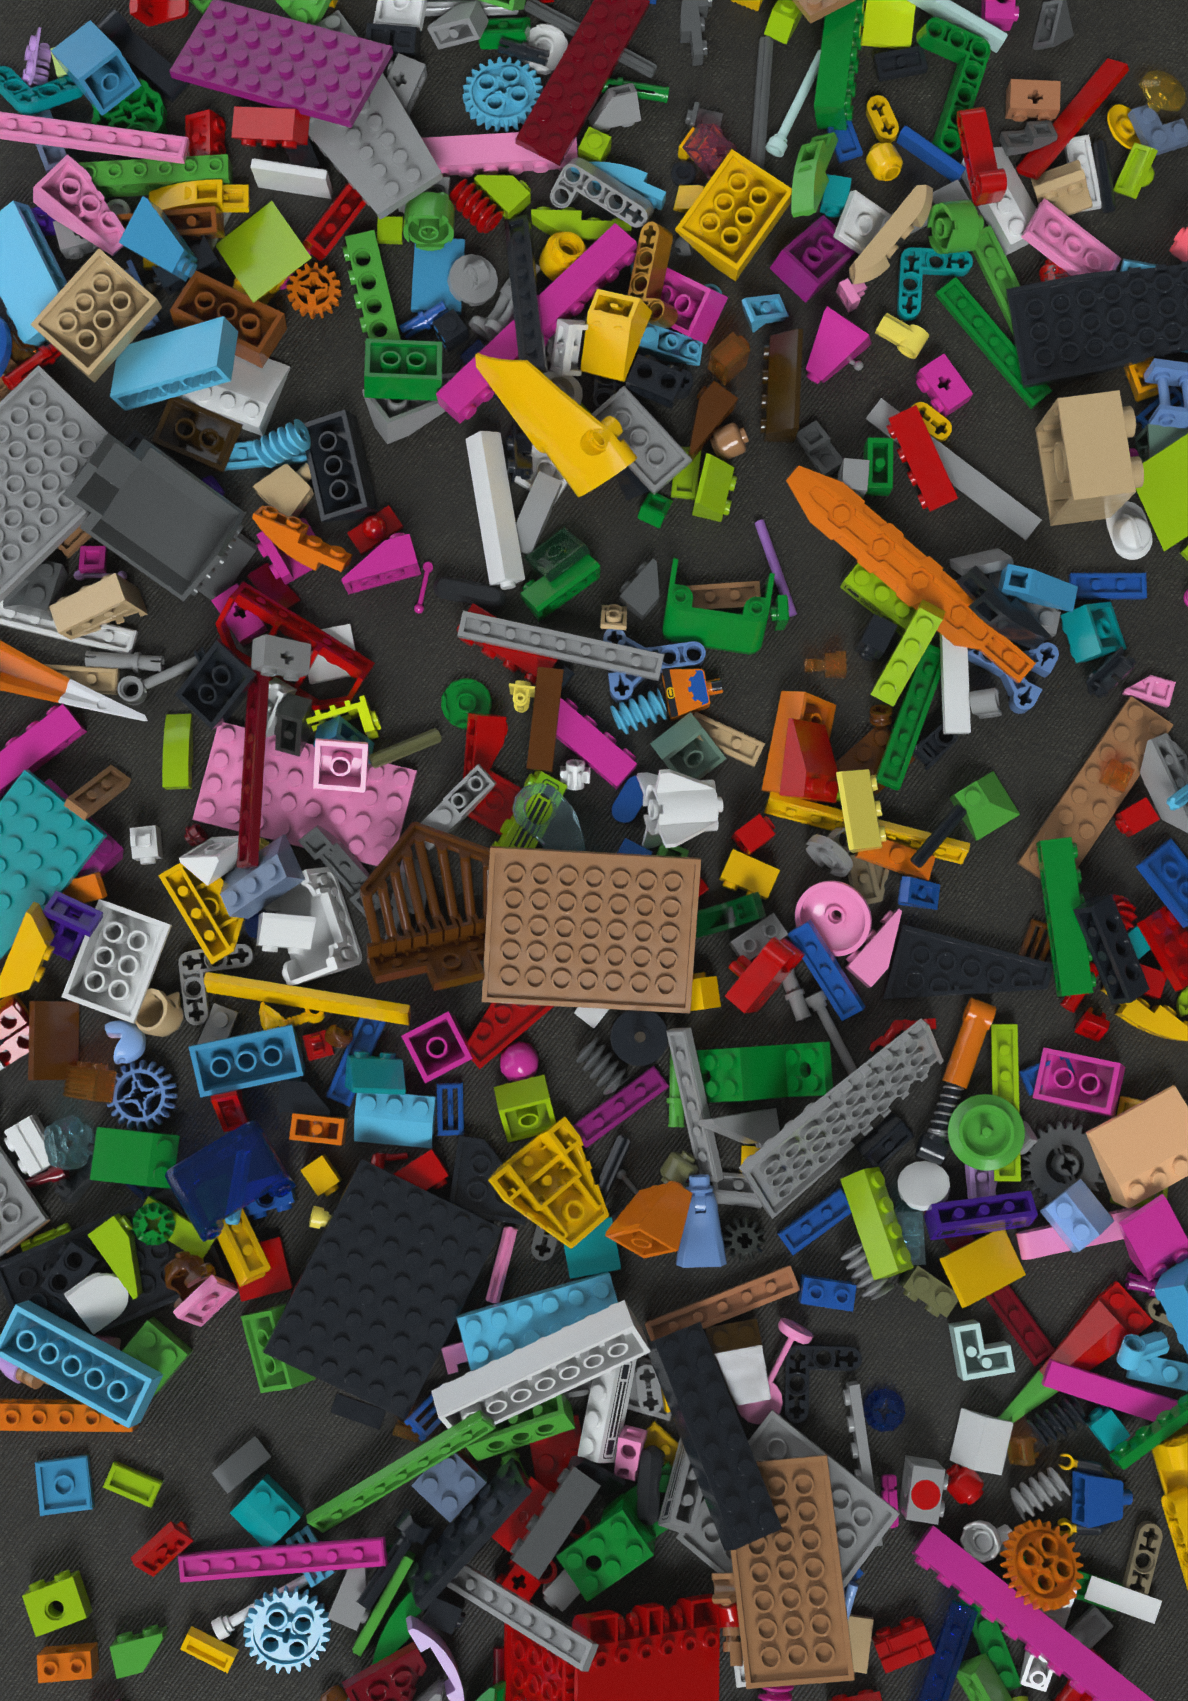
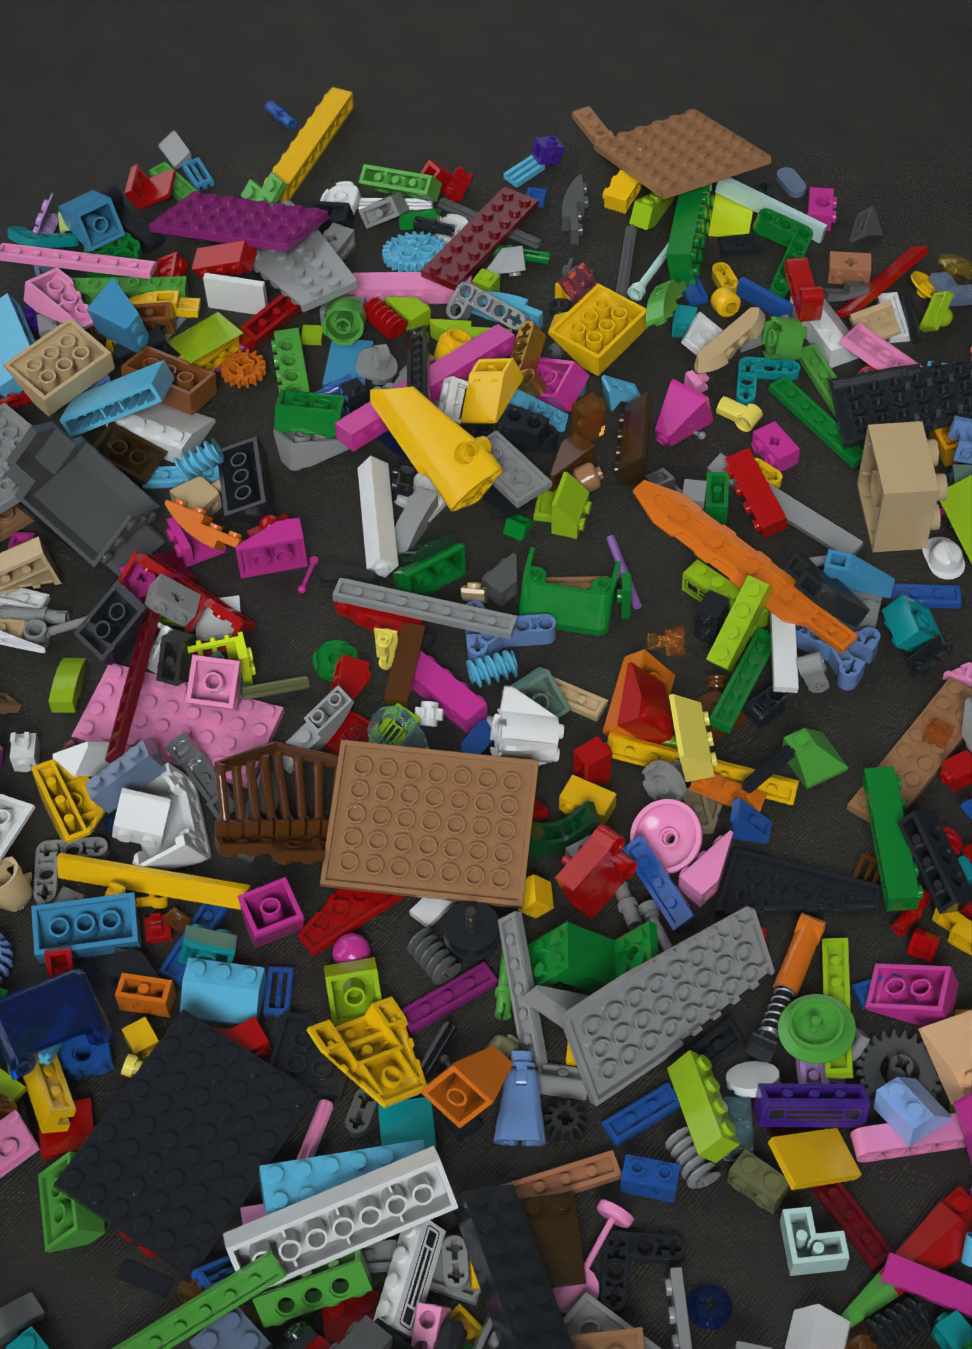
camera: 10 degrees right, 30 degrees down
(688, 691) = (539, 651): torso -> none
(812, 259) = (661, 361): magenta slope -> none

